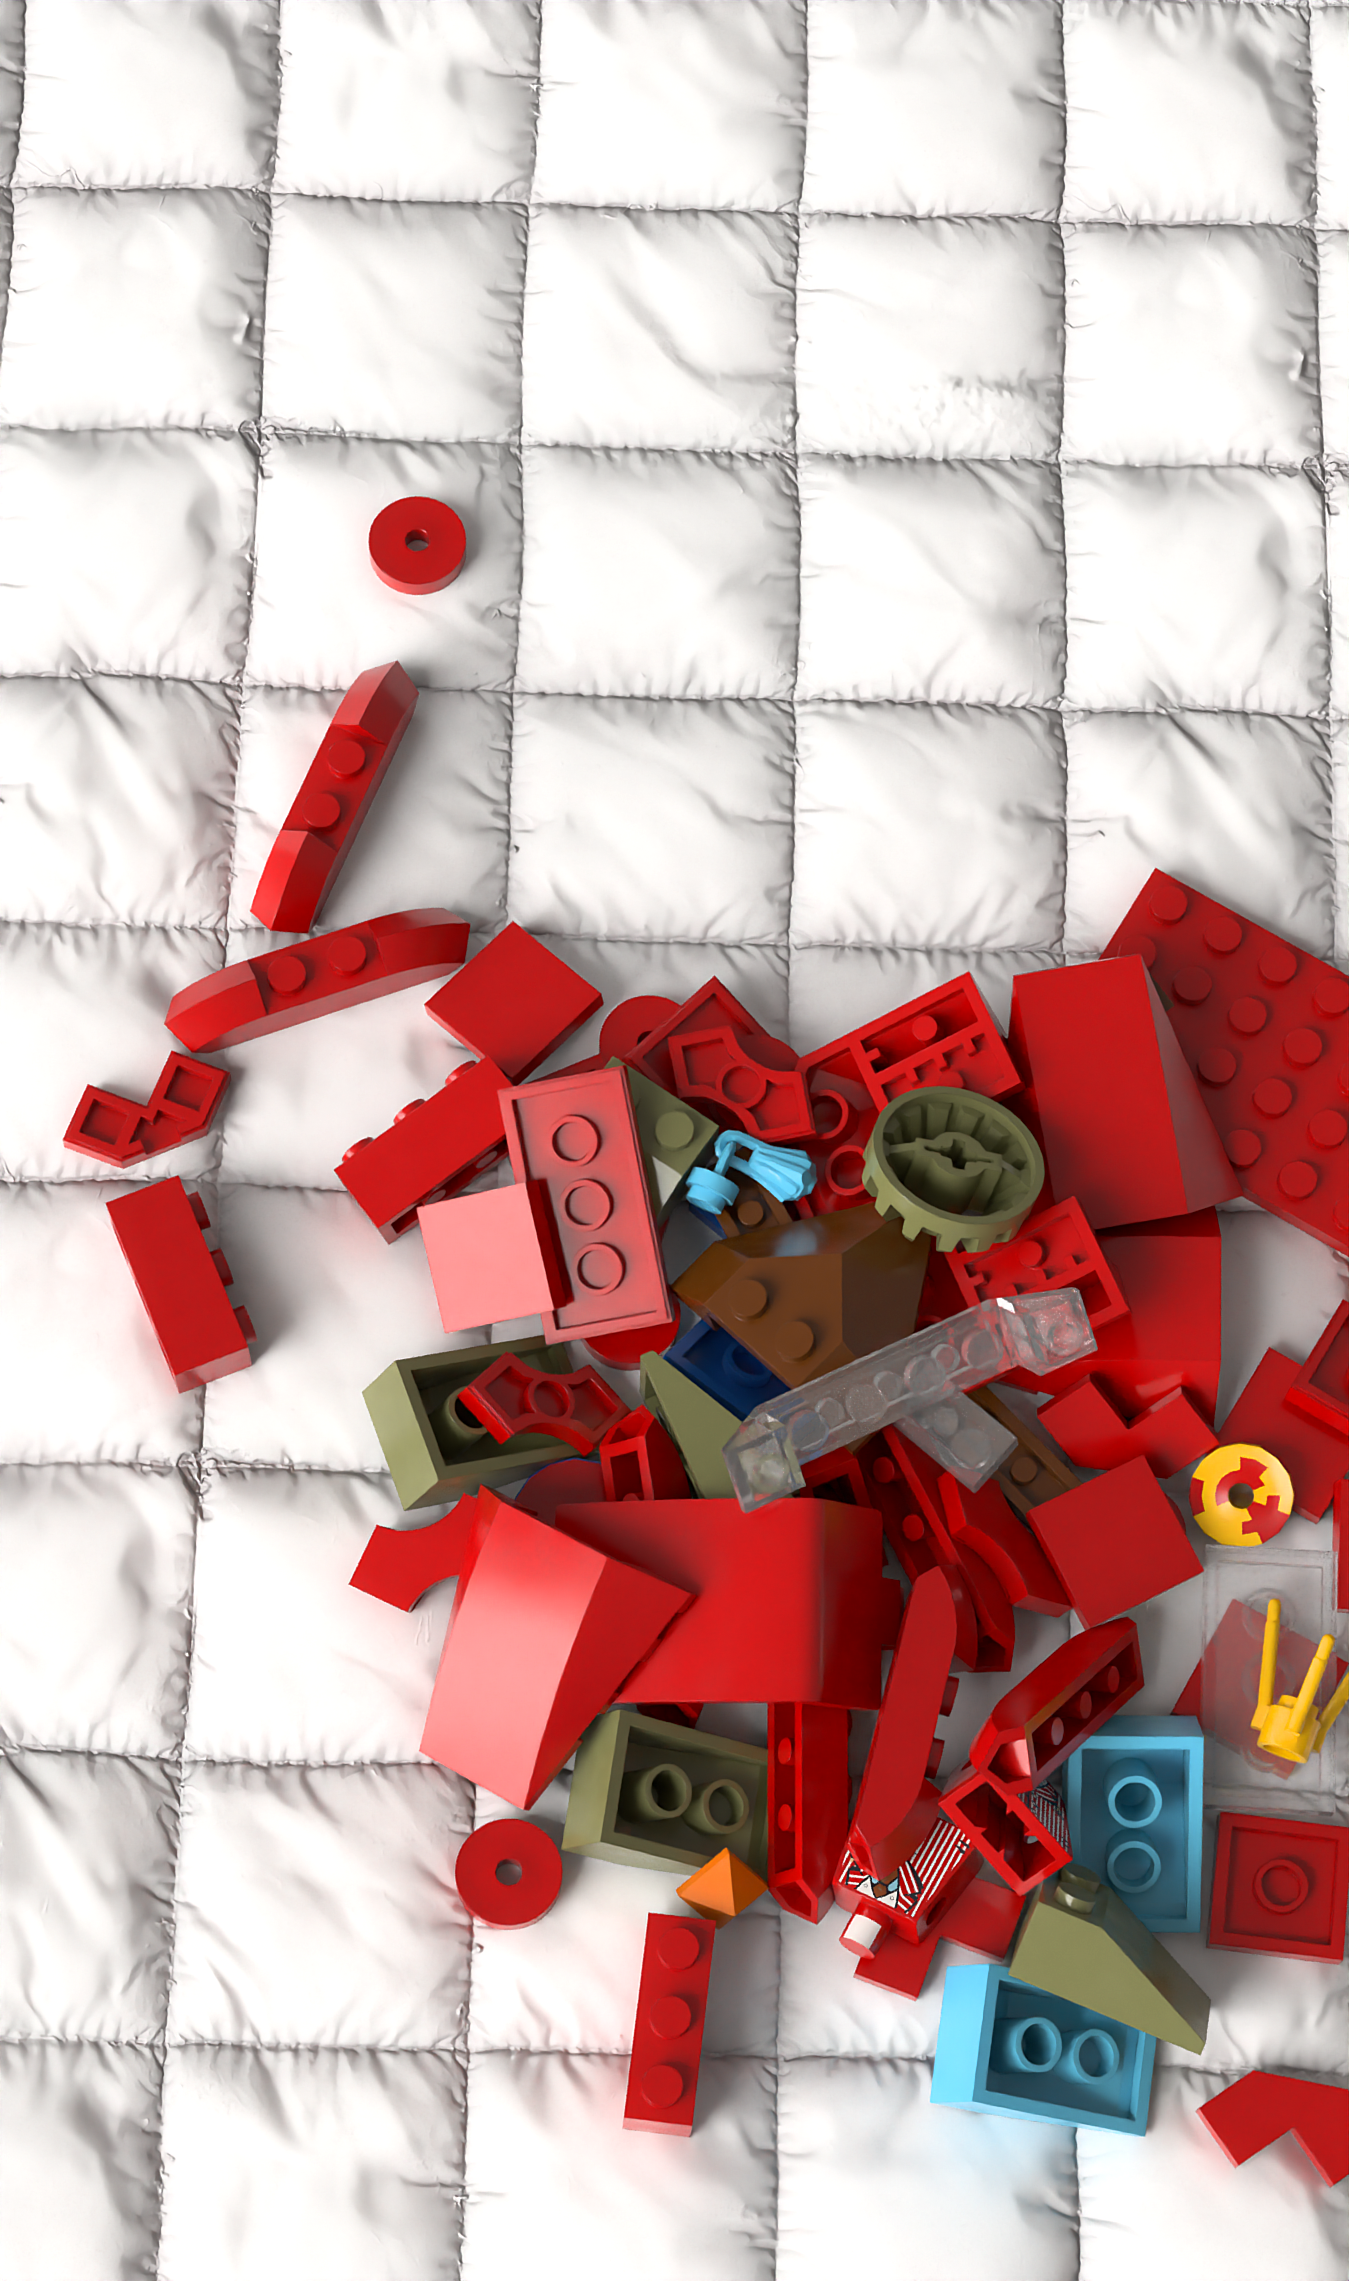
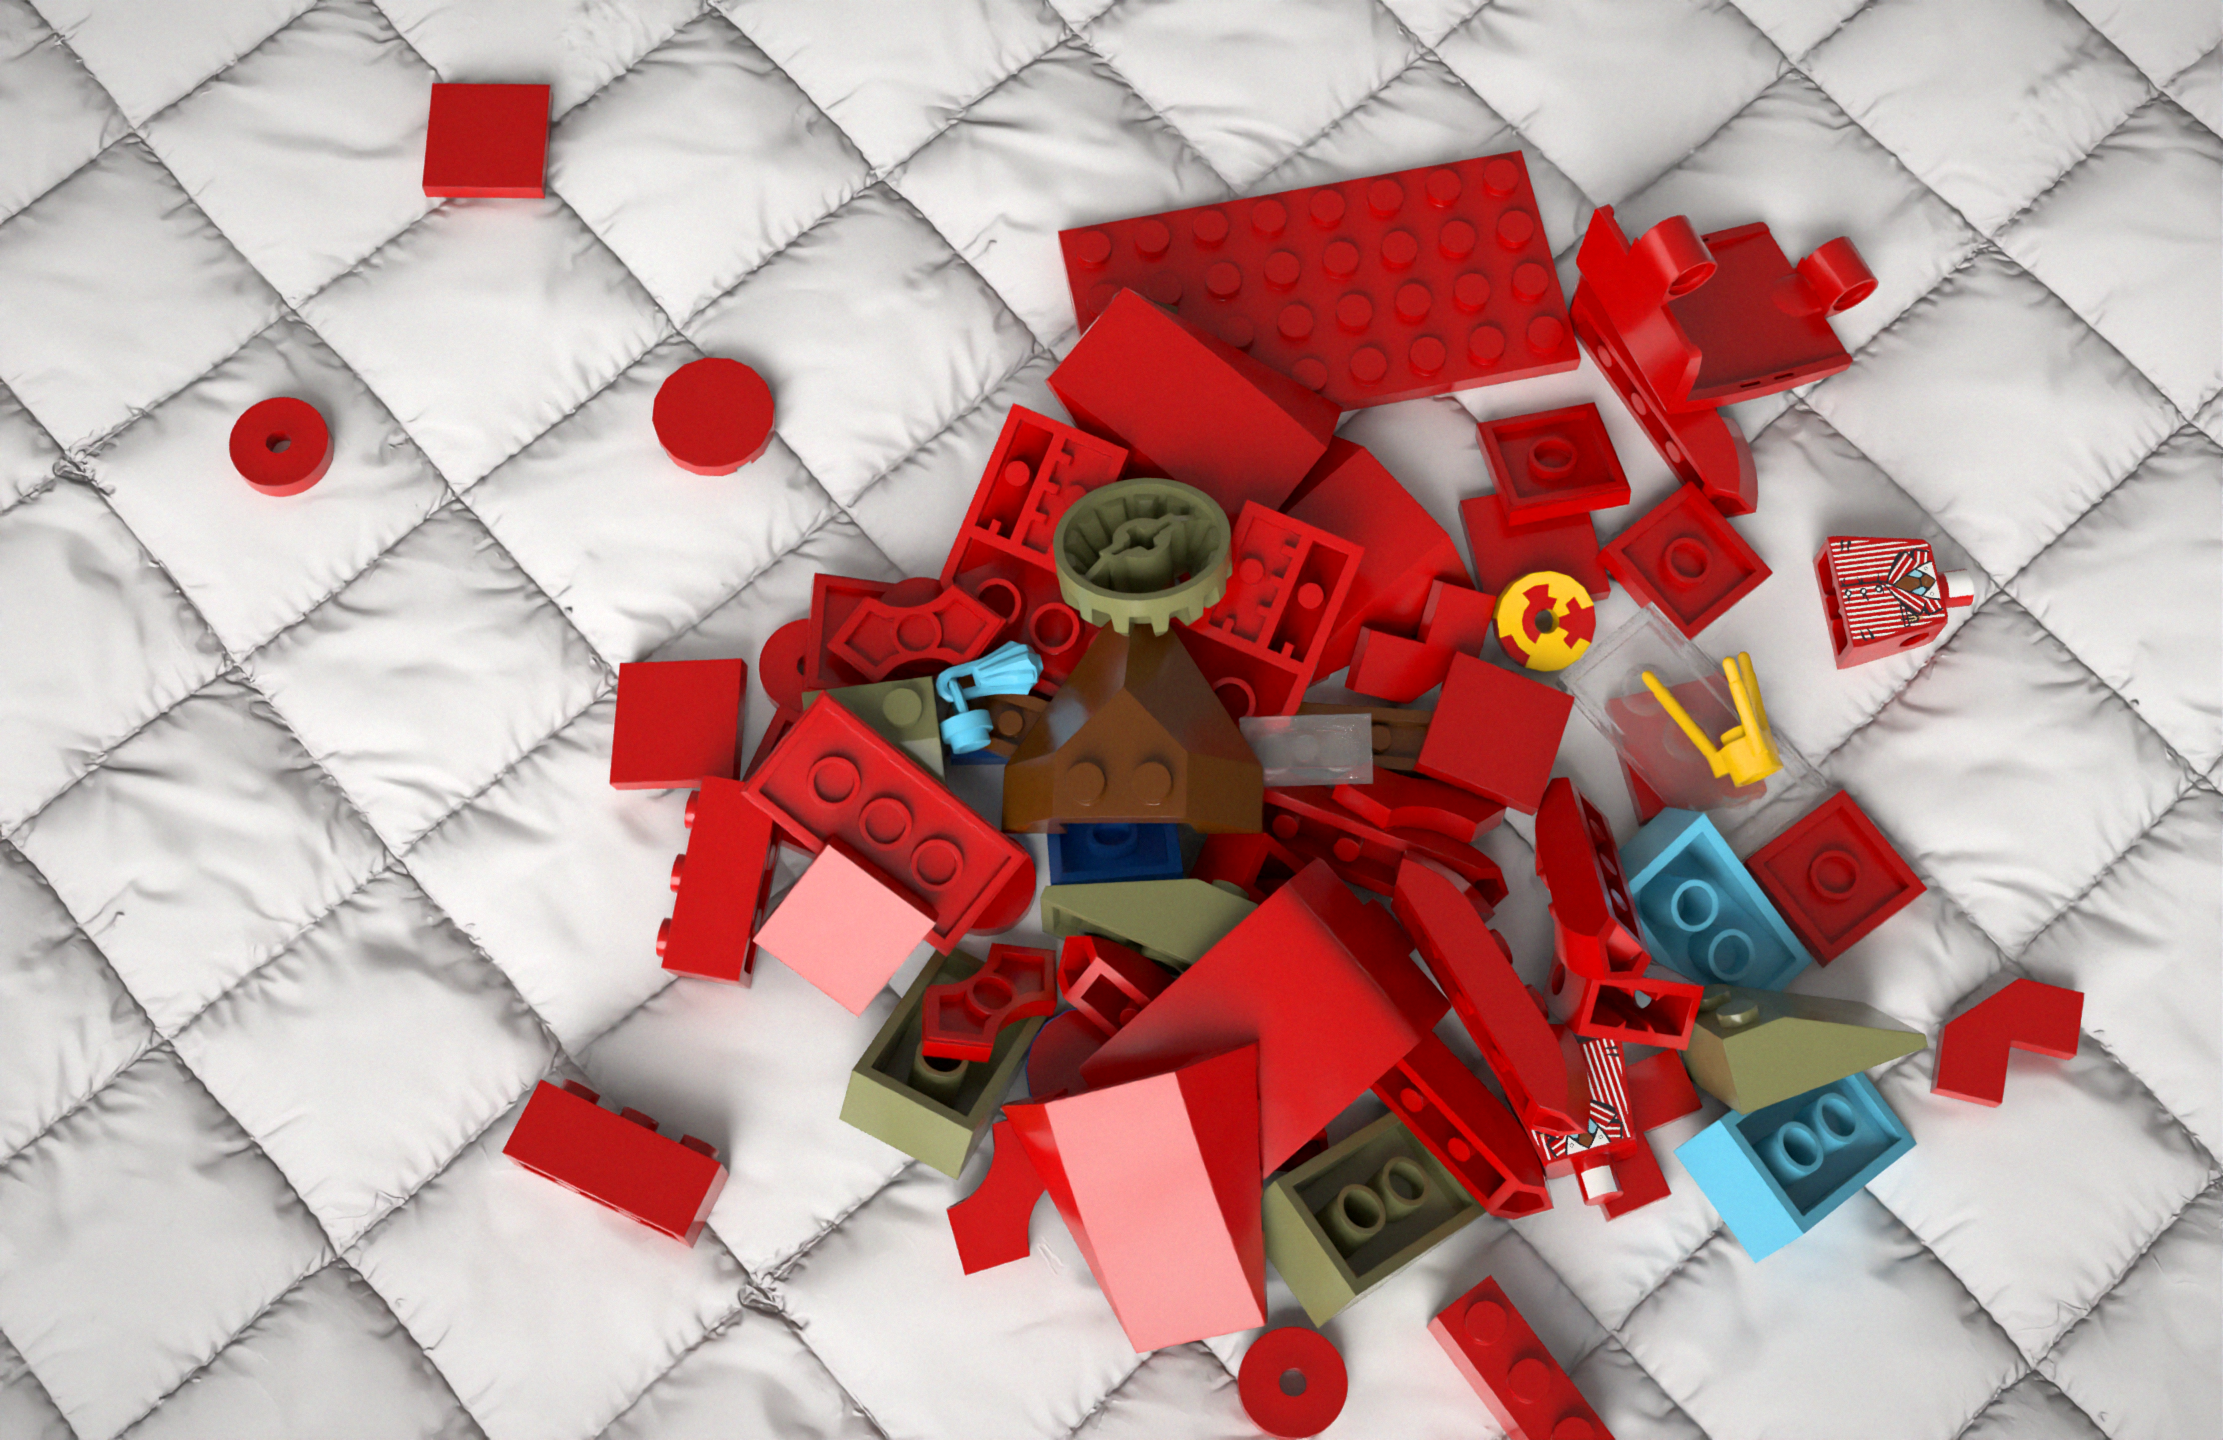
camera: 40 degrees left, 0 degrees up
(130, 1132) = (466, 1080): red tile -> none
(318, 978) = (505, 835): red brick -> none
(334, 799) = (394, 689): red brick -> none
(722, 1888) = (1464, 1246): orange slope -> none
(756, 791) = (714, 416): none -> red tile
(783, 430) = (488, 140): none -> red tile
(898, 1380) = (1211, 851): clear slope -> none

